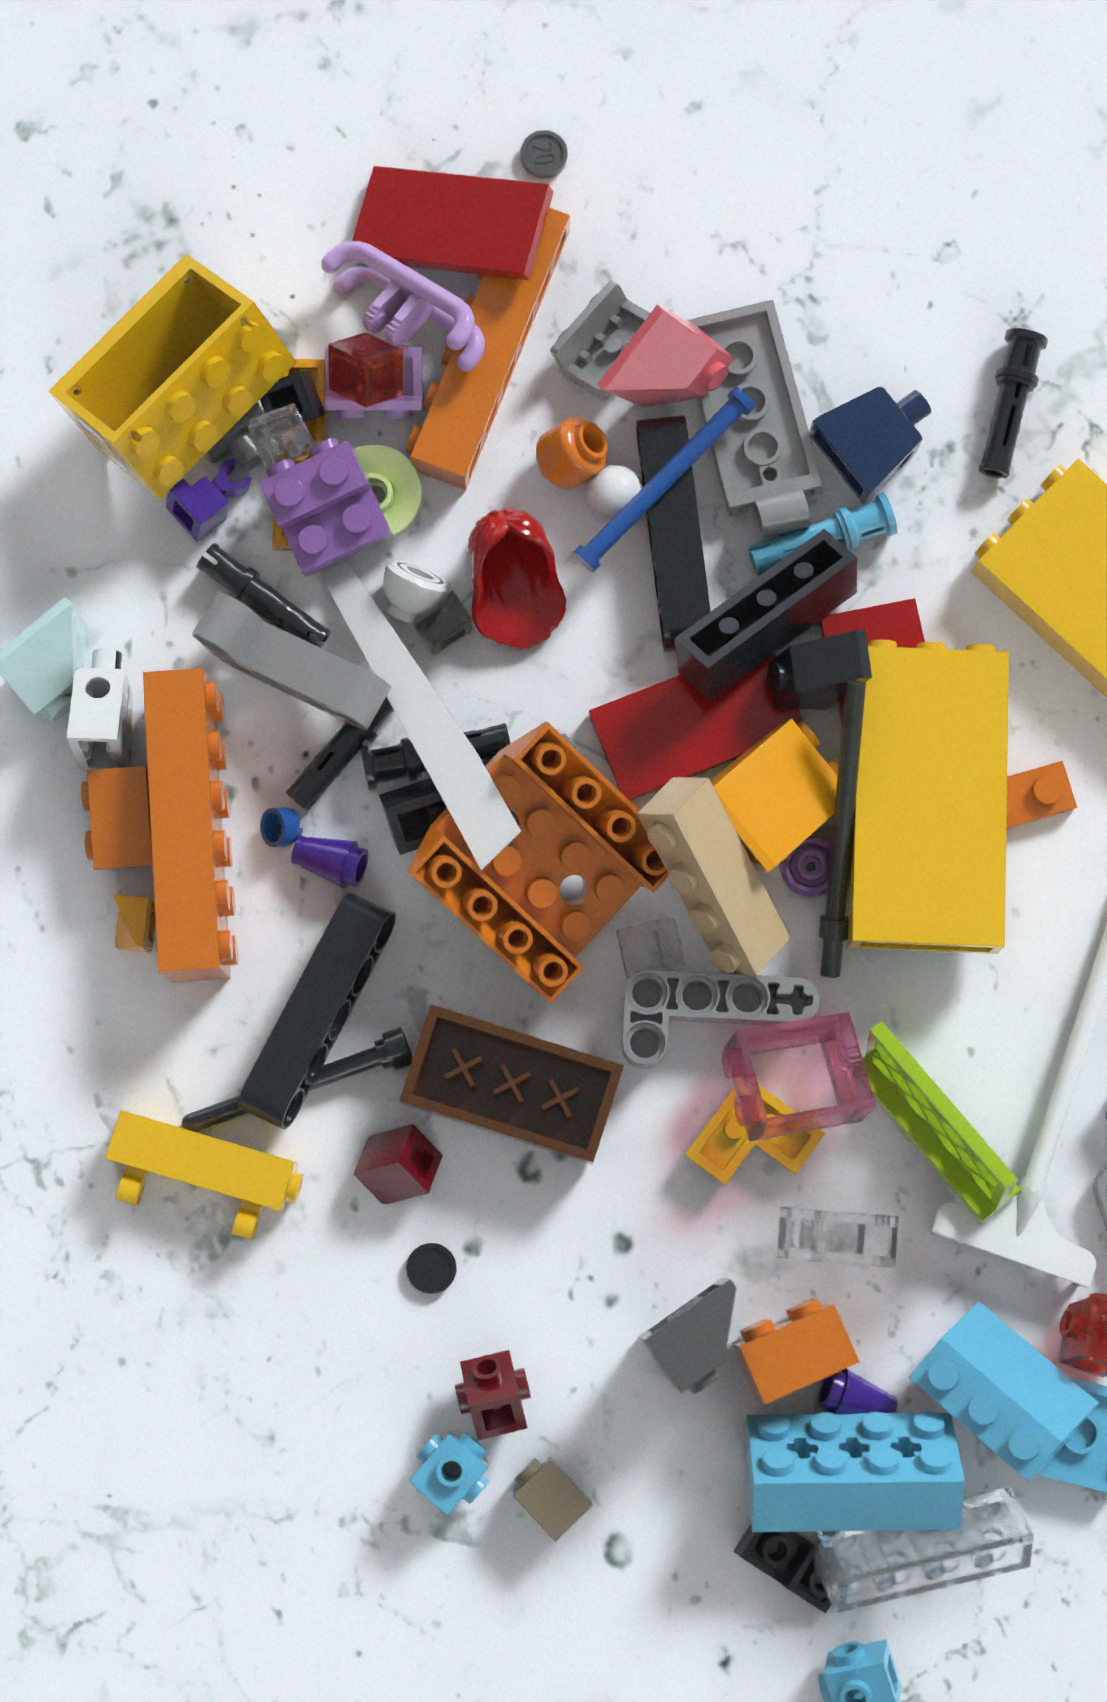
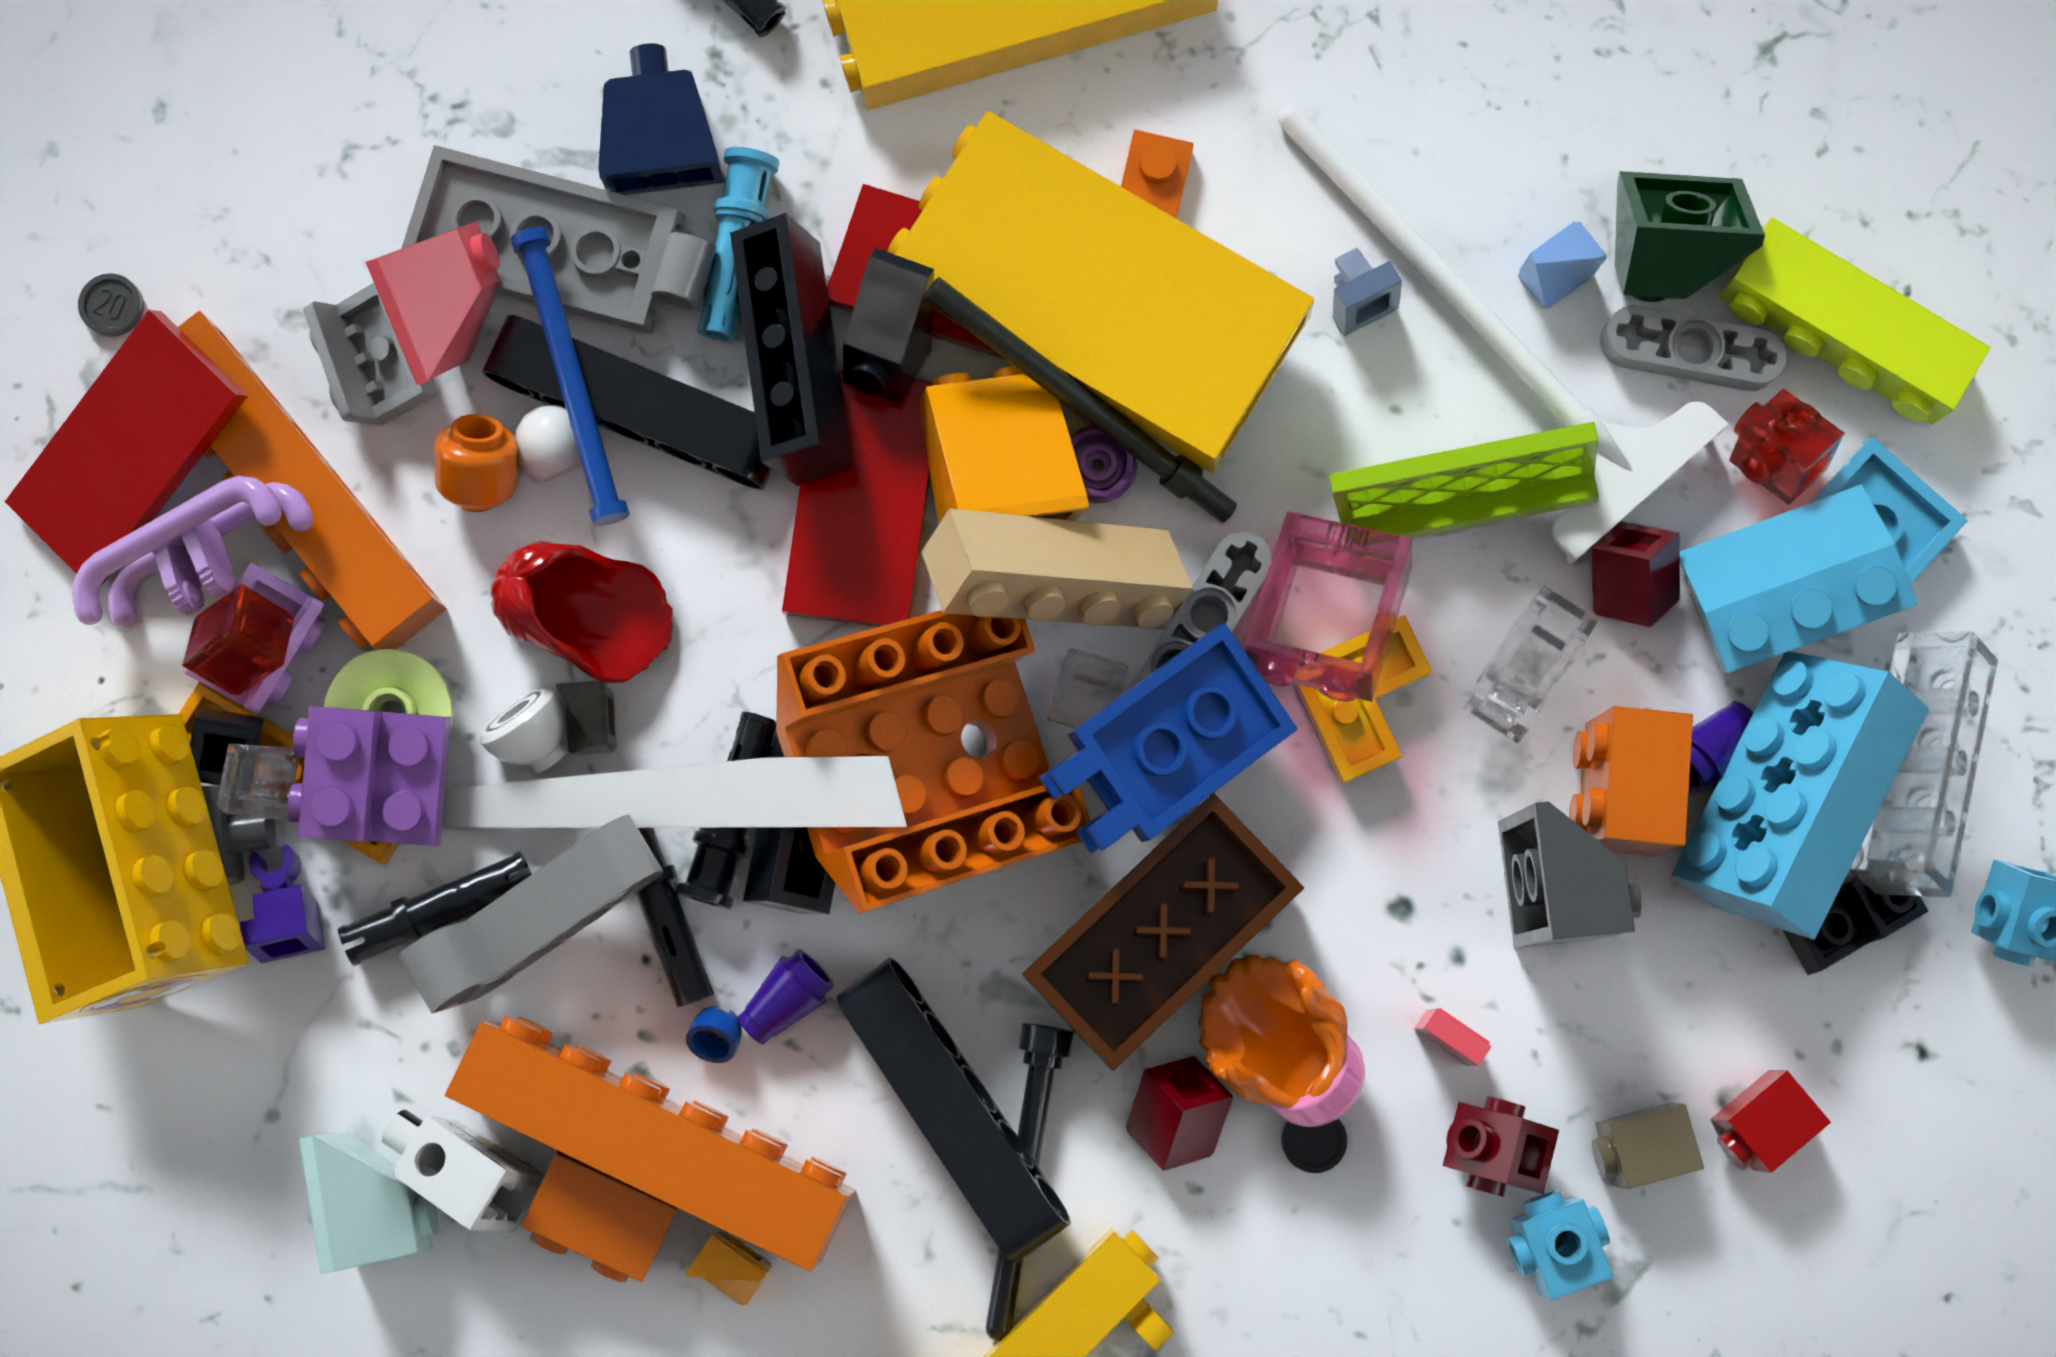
camera: 60 degrees left, 0 degrees up
(483, 1205) = (1281, 1040): none -> orange hair
(552, 1323) = (1453, 1036): none -> coral tile
(613, 1574) = (1768, 1122): none -> red brick
(644, 1018) = (1172, 740): none -> blue tile
(947, 1280) = (1636, 573): none -> dark red panel
(1037, 982) = (1363, 292): none -> sand blue tile

